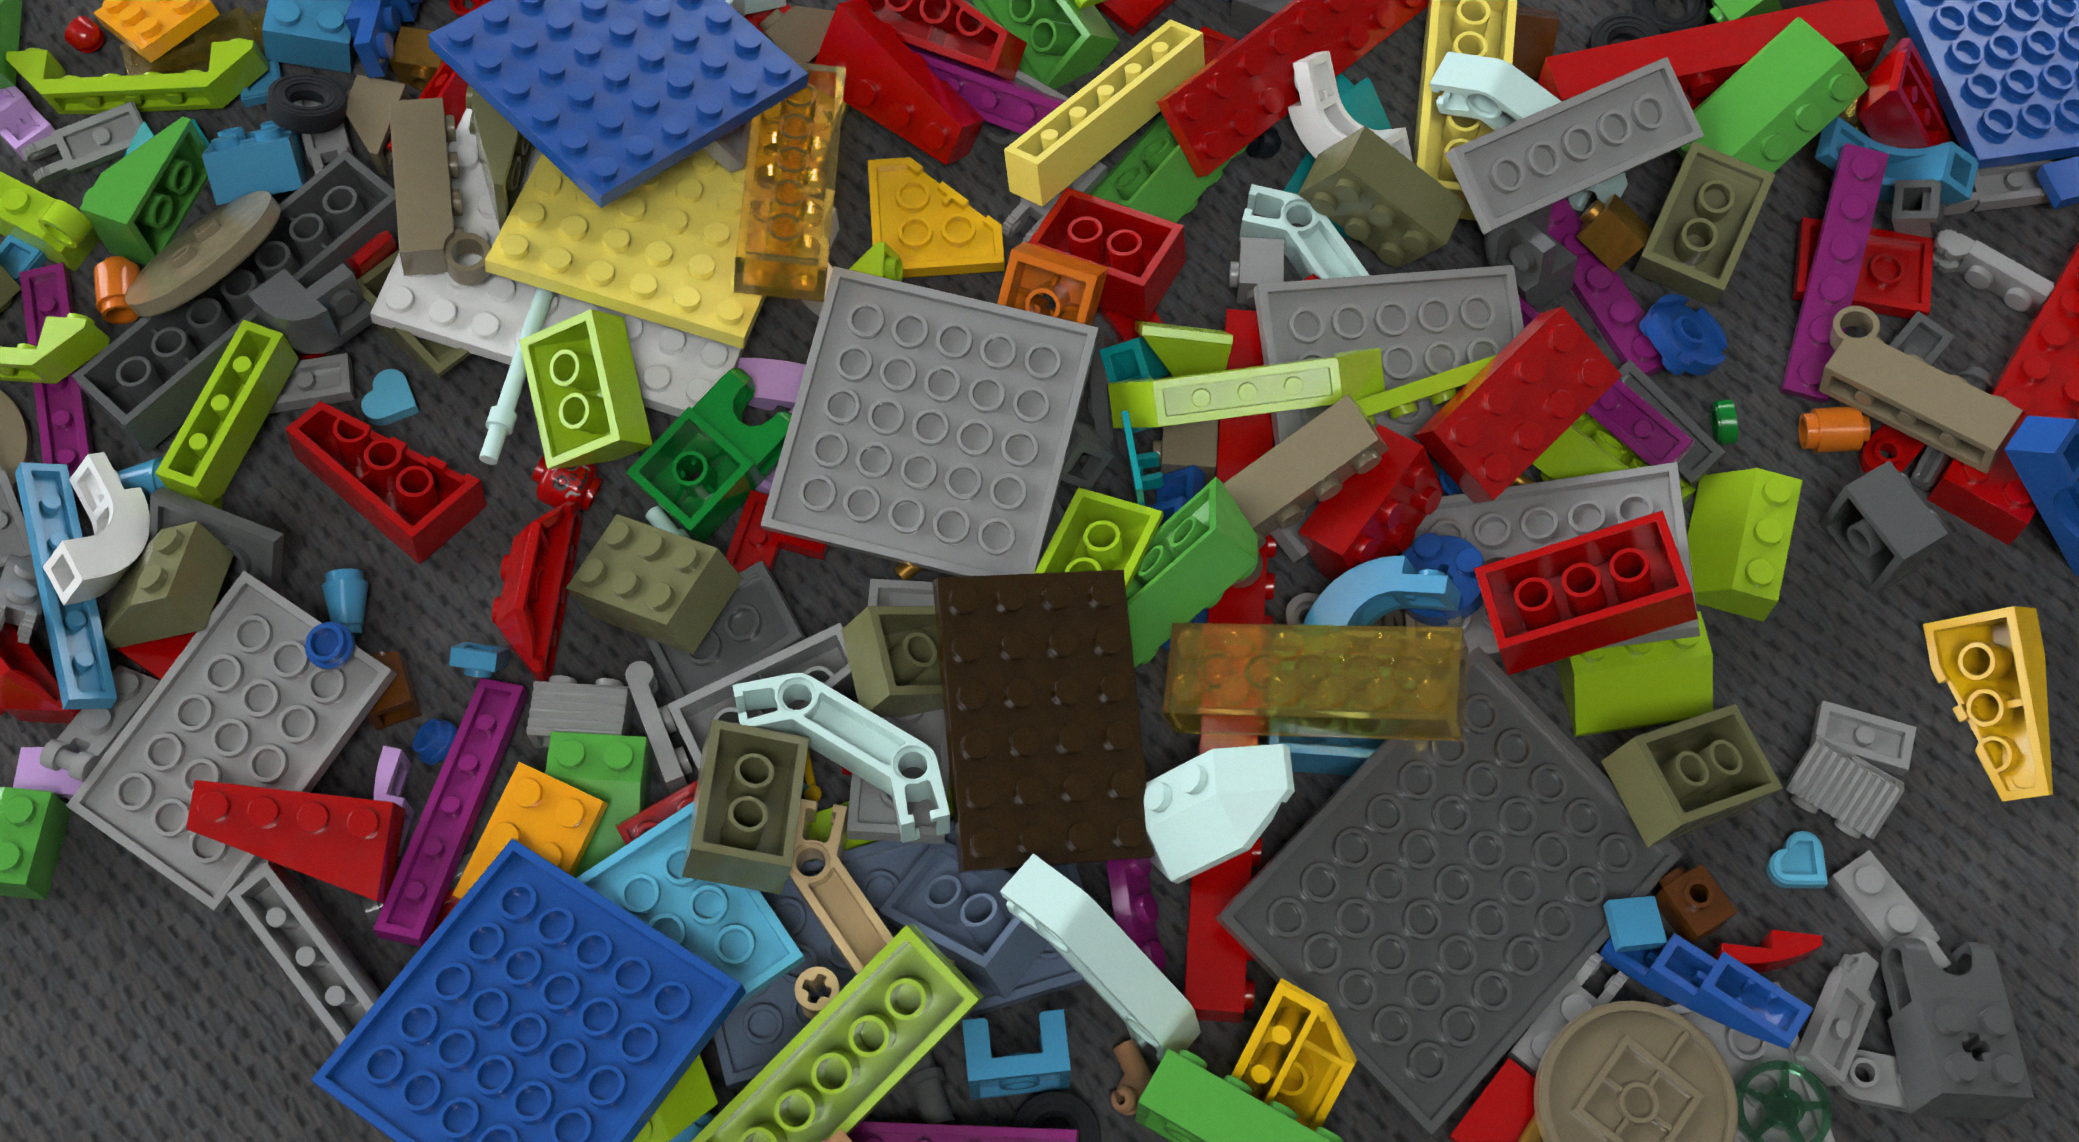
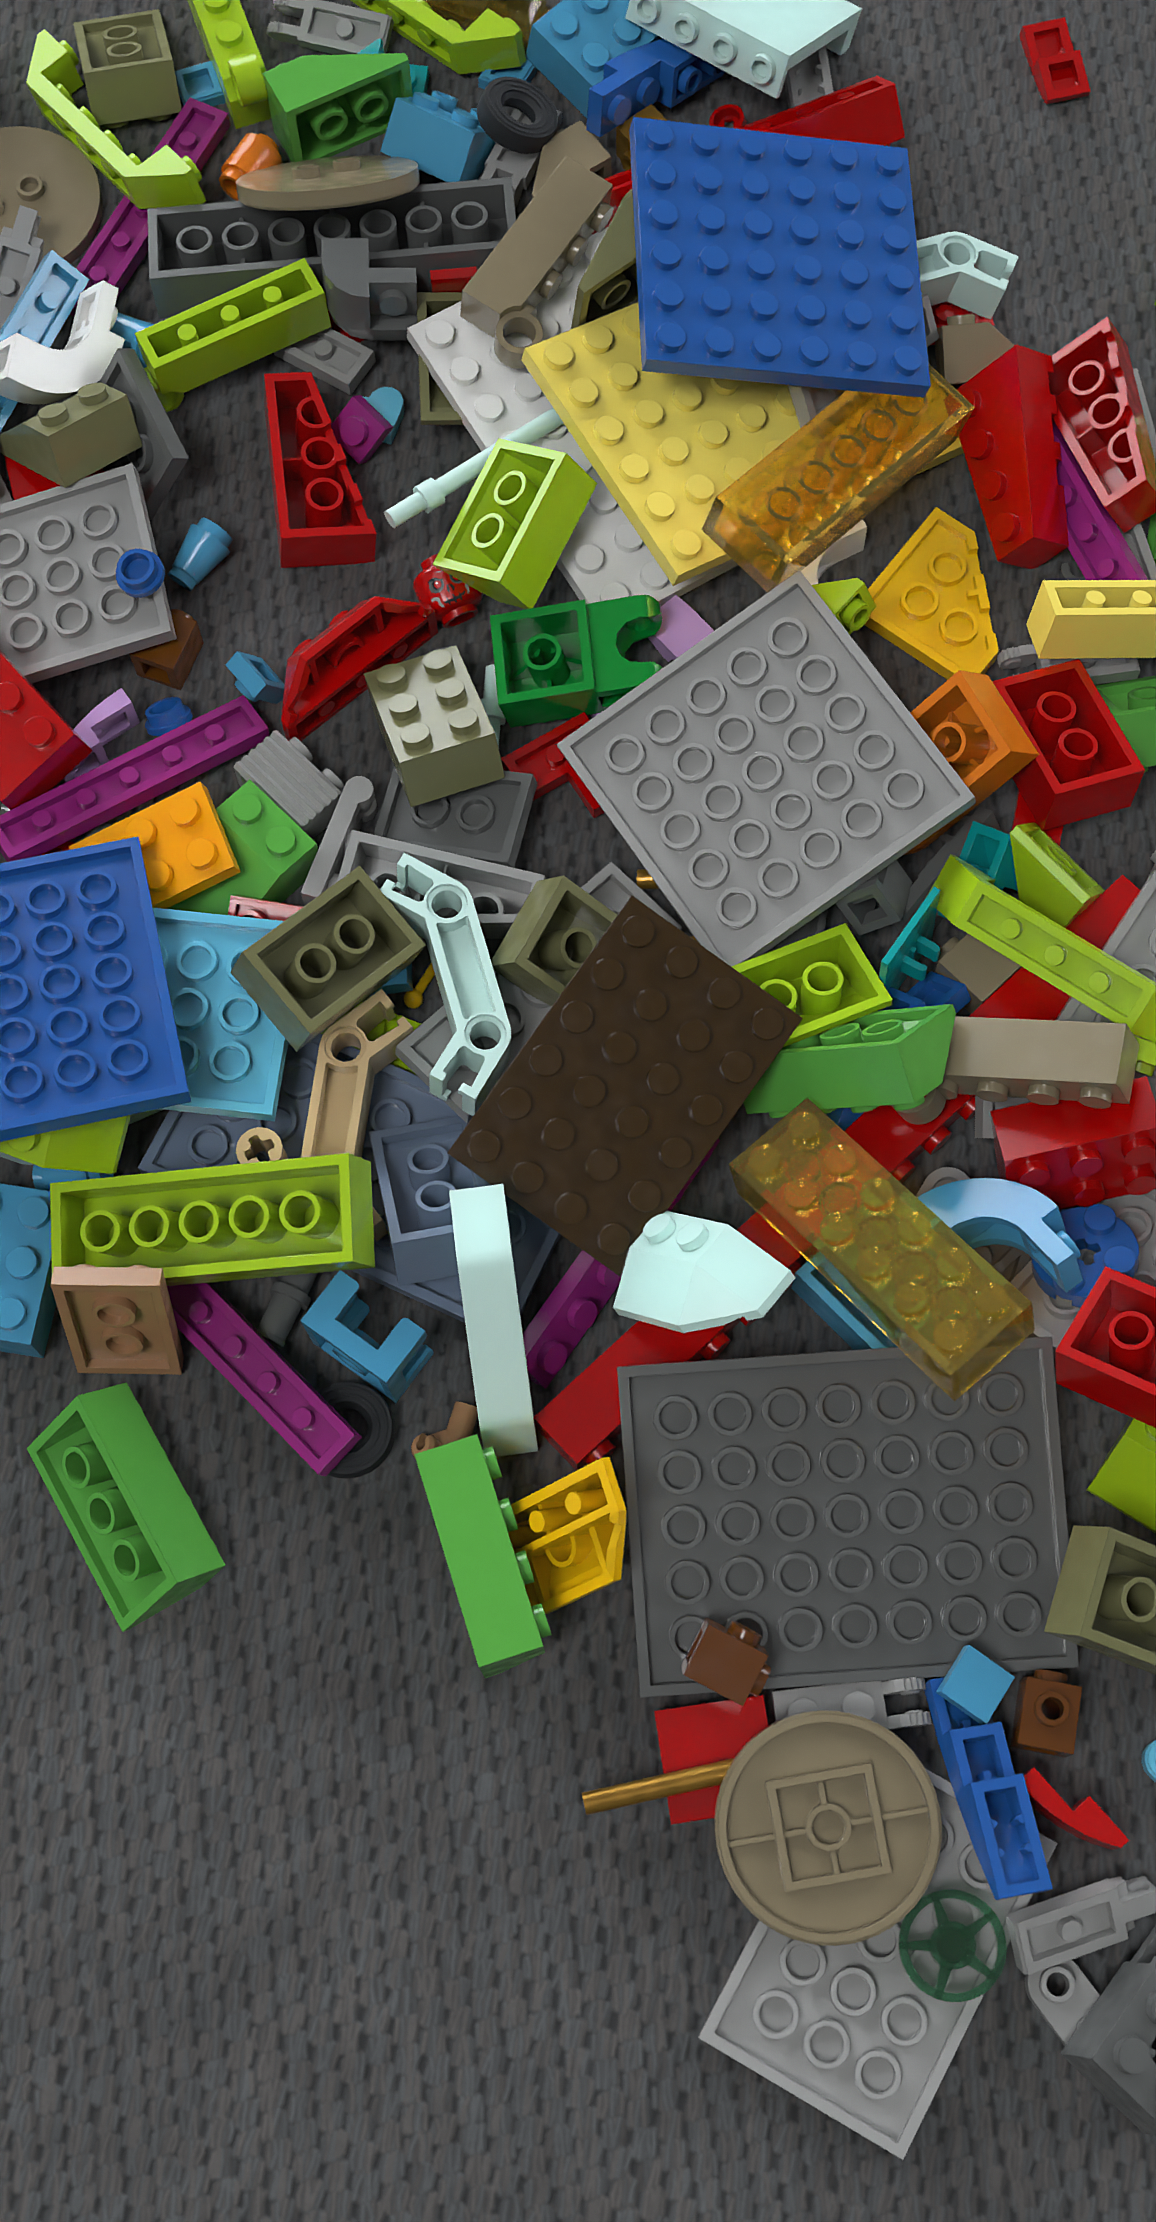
camera: 45 degrees right, 5 degrees up
(391, 415) = (360, 429): none -> magenta plate
(1470, 1053) = (727, 1660): none -> reddish brown brick

